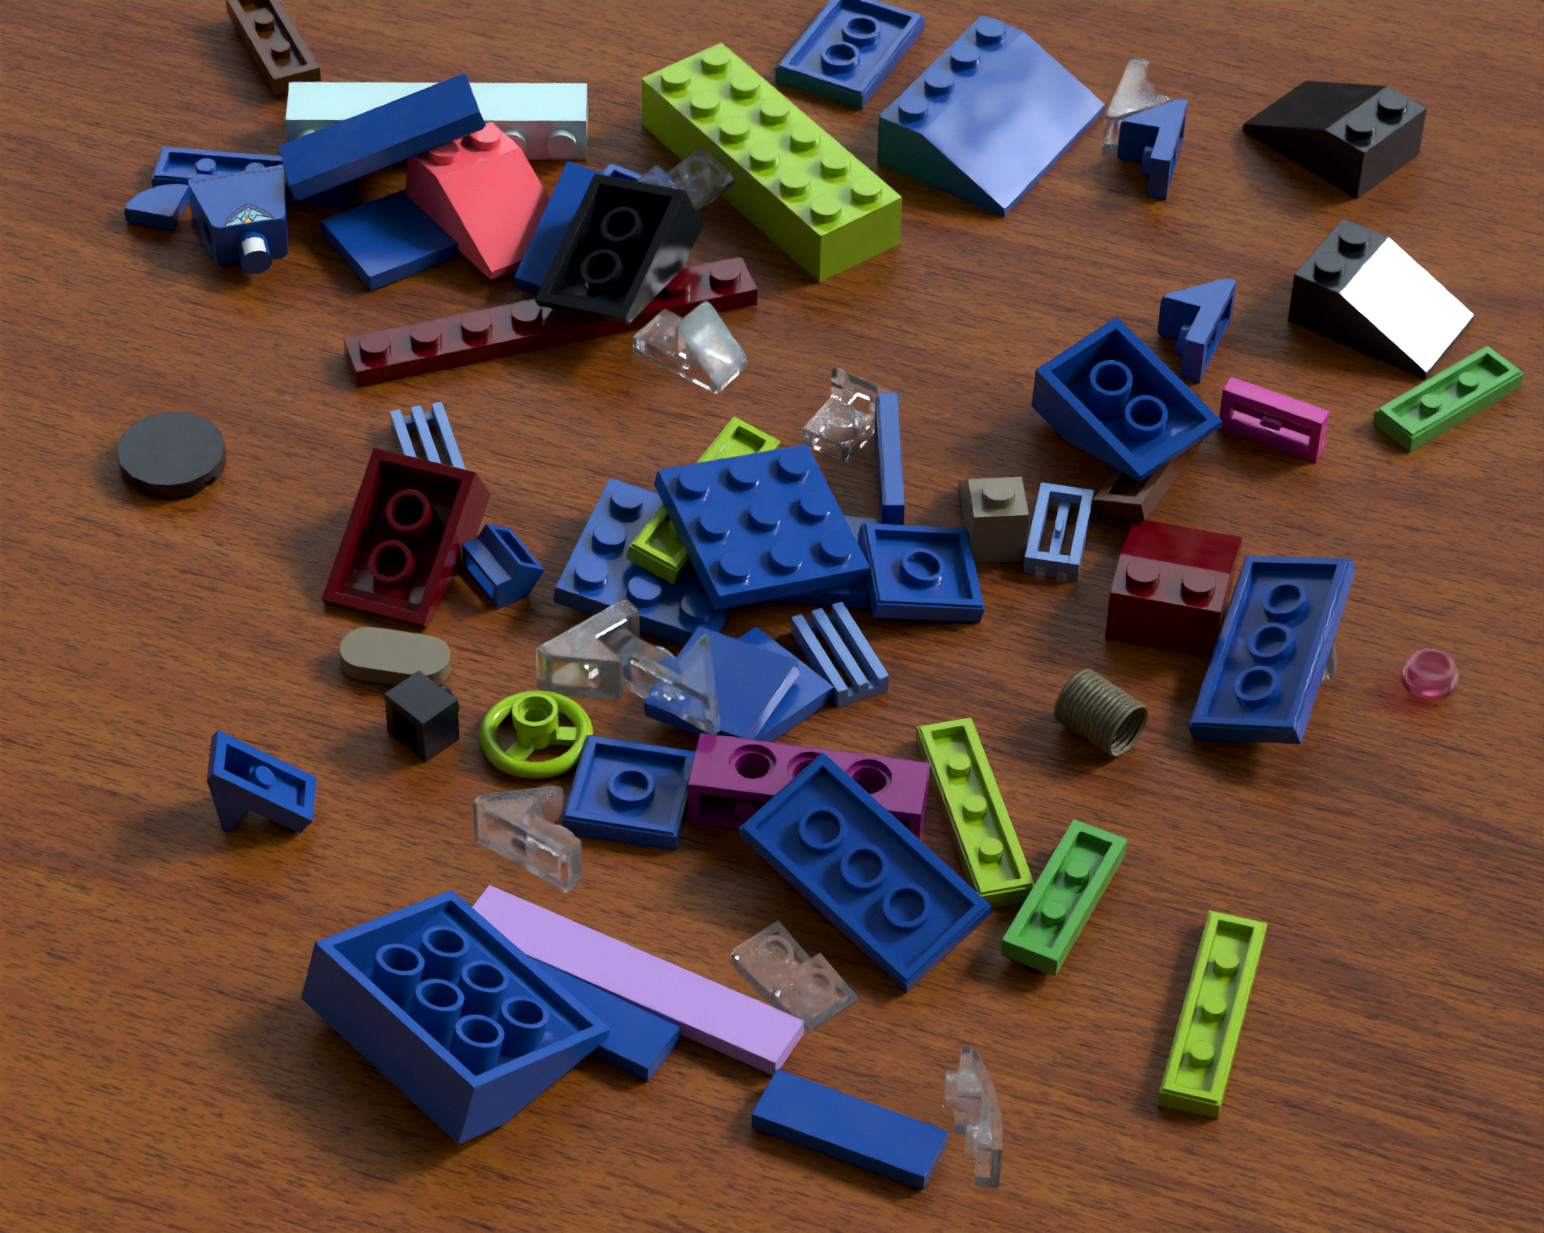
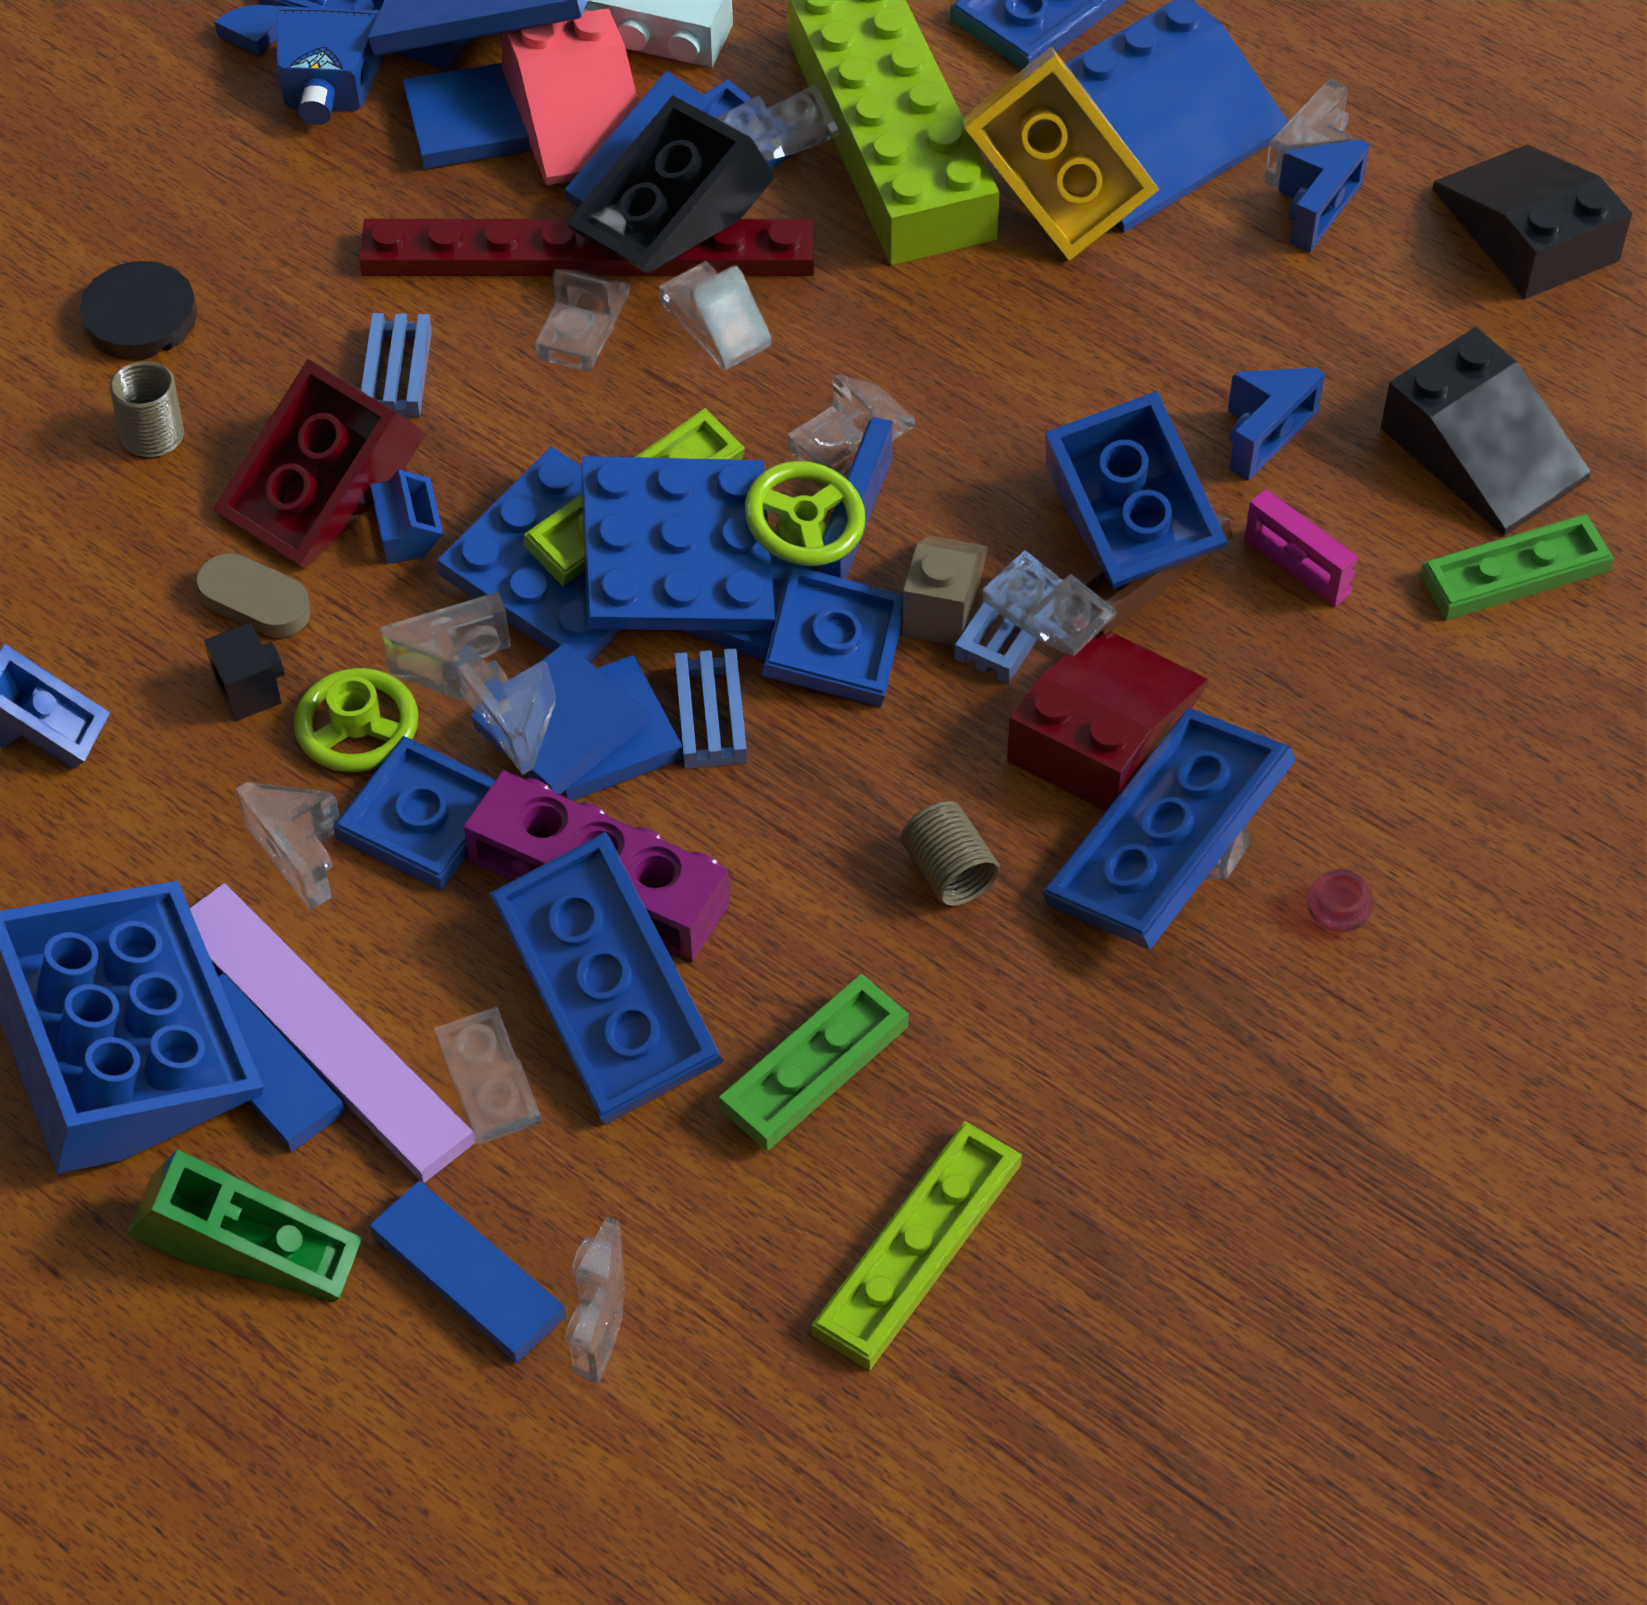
camera: 20 degrees right, 10 degrees up
(229, 528) = (147, 409): none -> dark tan piece
(574, 378) = (580, 318): none -> clear slope
(641, 1143) = (241, 1230): none -> green slope
(859, 483) = (802, 518): none -> lime piece
(939, 155) = (1059, 153): none -> yellow slope
(975, 812) = (768, 933): lime tile -> none
(1085, 507) = (1046, 607): none -> clear slope

